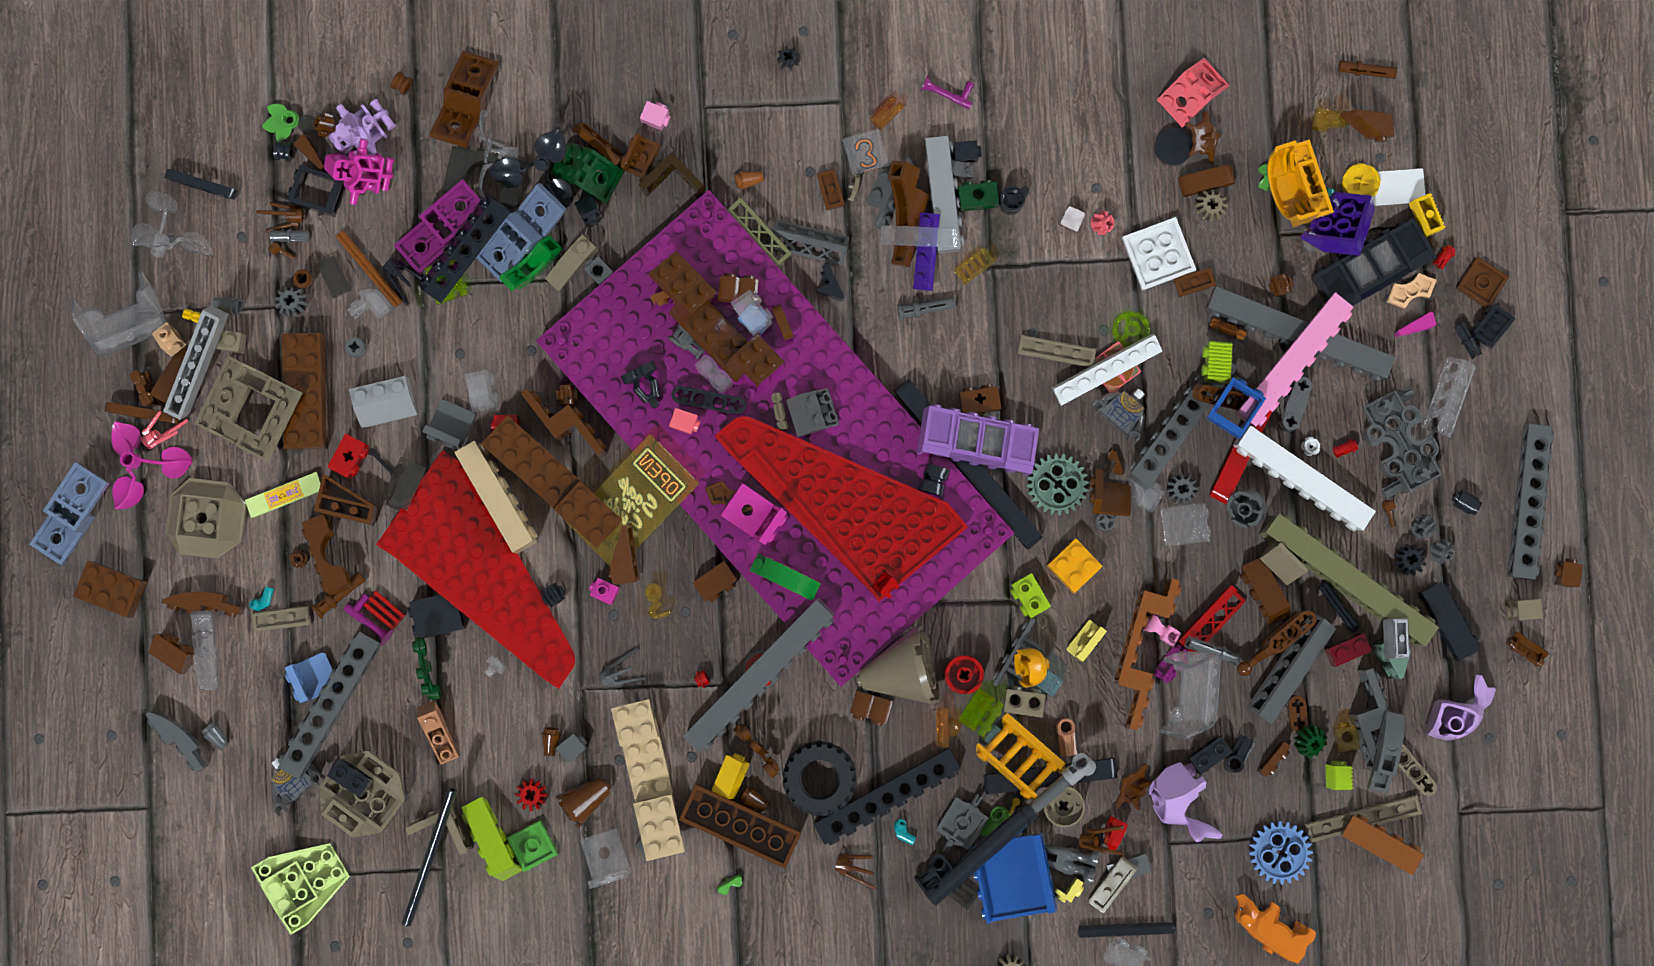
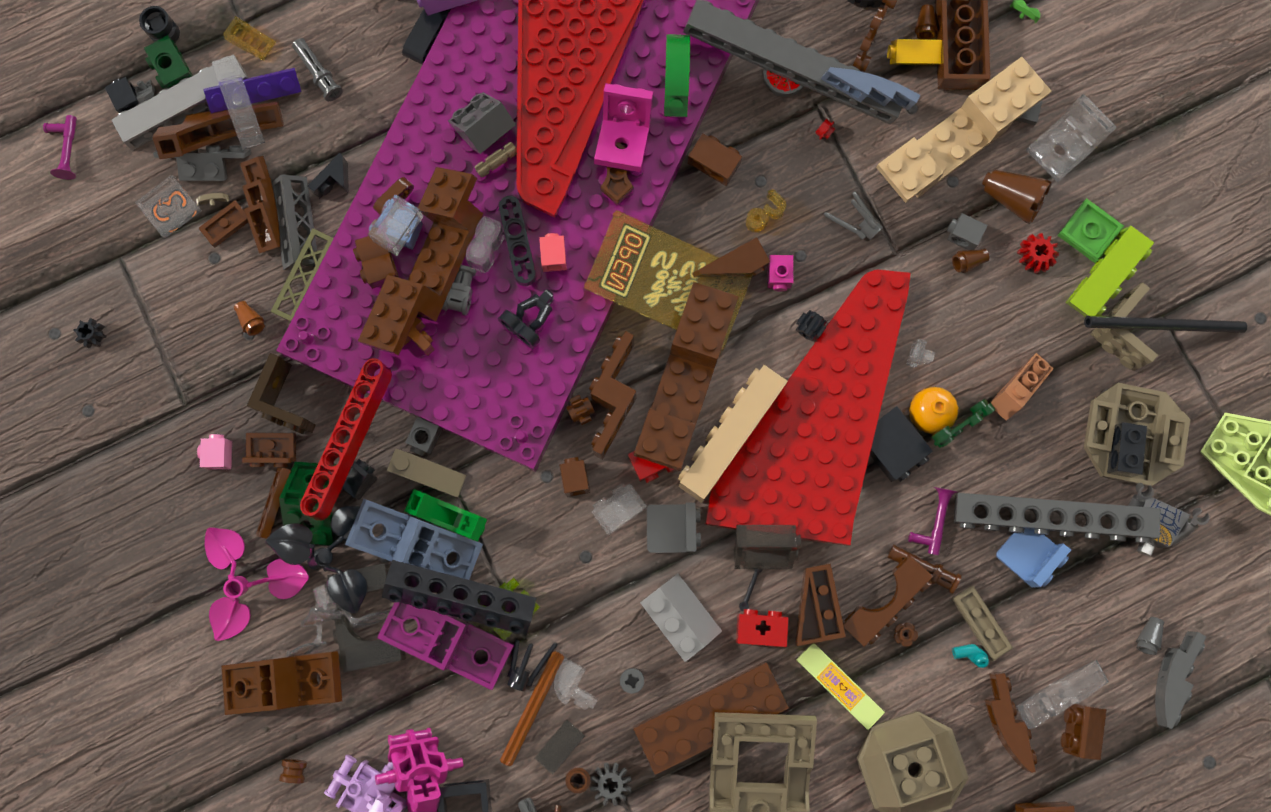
camera: 115 degrees left, 5 degrees down
(381, 617) = (929, 493): red tile -> none
(450, 657) = (933, 410): none -> light orange cylinder
(516, 368) = (574, 477): none -> reddish brown brick
(533, 81) = (227, 614): none -> dark pink plant
(609, 205) = (346, 451): none -> red beam
(713, 716) = (863, 85): none -> sand blue slope
(832, 223) = (262, 205): none -> reddish brown slope
(884, 114) = (115, 201): clear orange hinge -> none

